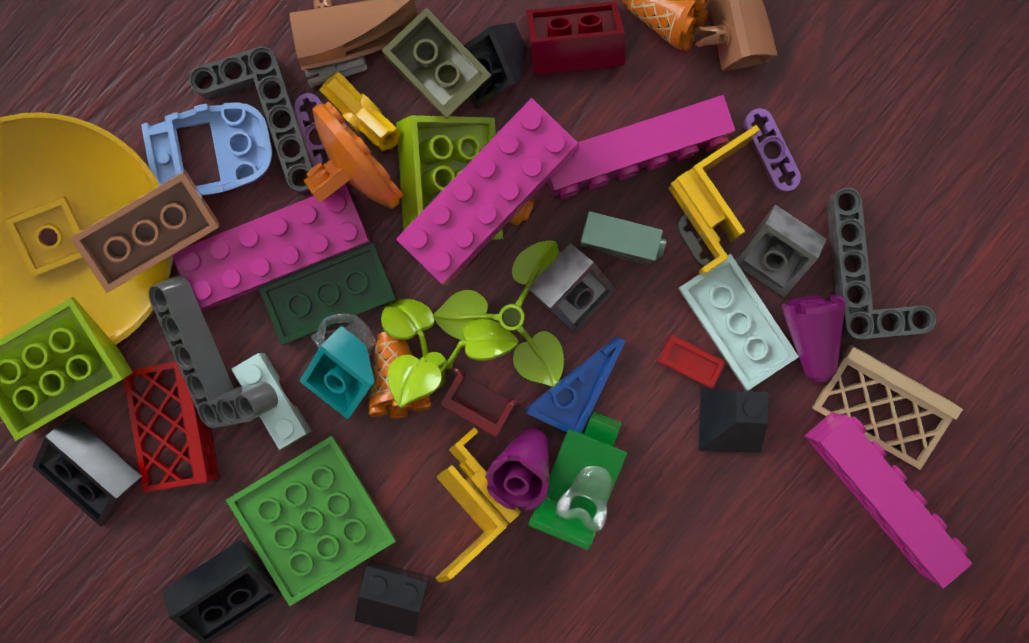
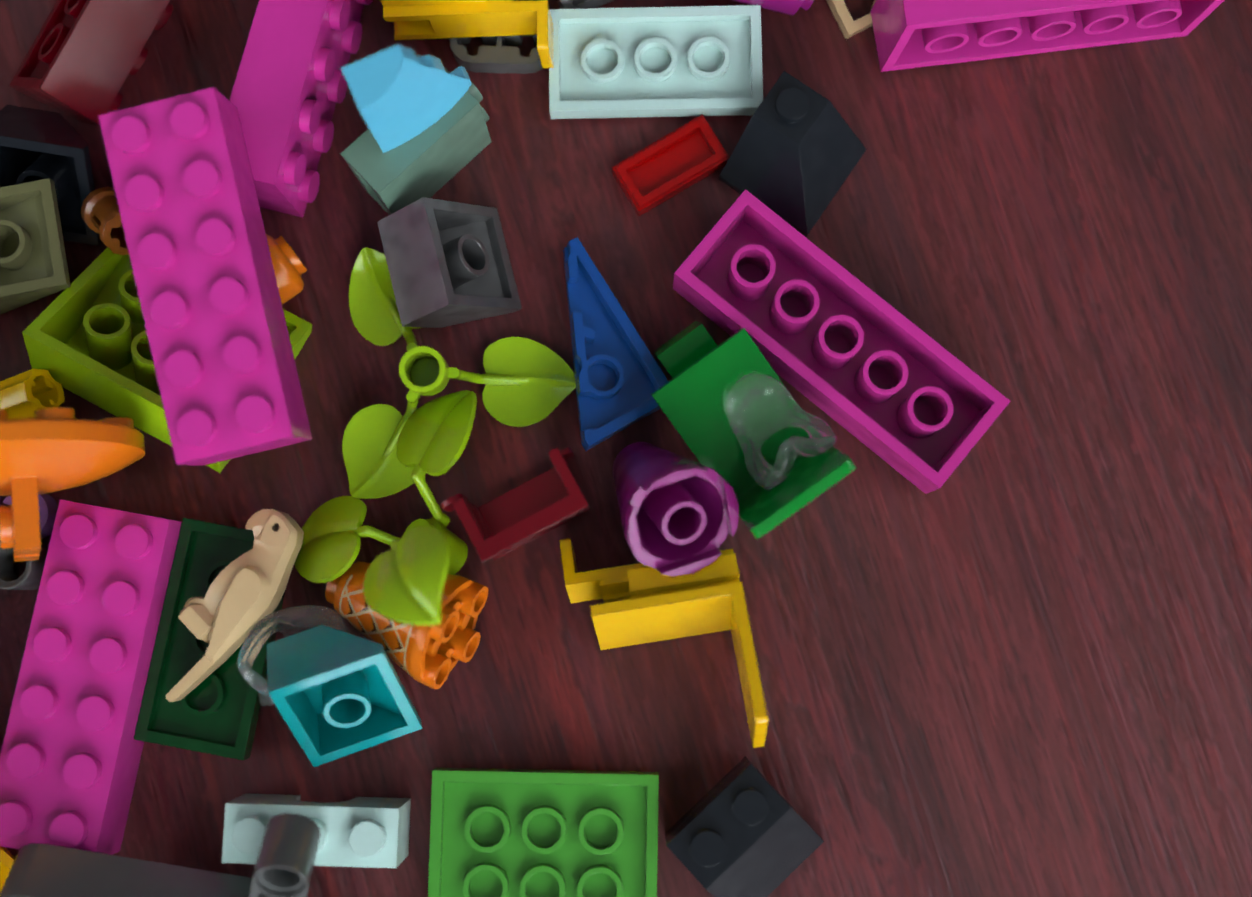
camera: 55 degrees left, 5 degrees down
(356, 296) = (241, 595): none -> tan animal
(493, 109) = (103, 216): none -> dark orange bush
(633, 230) = (403, 93): none -> medium azure slope
(651, 501) = (839, 343): none -> dark pink brick

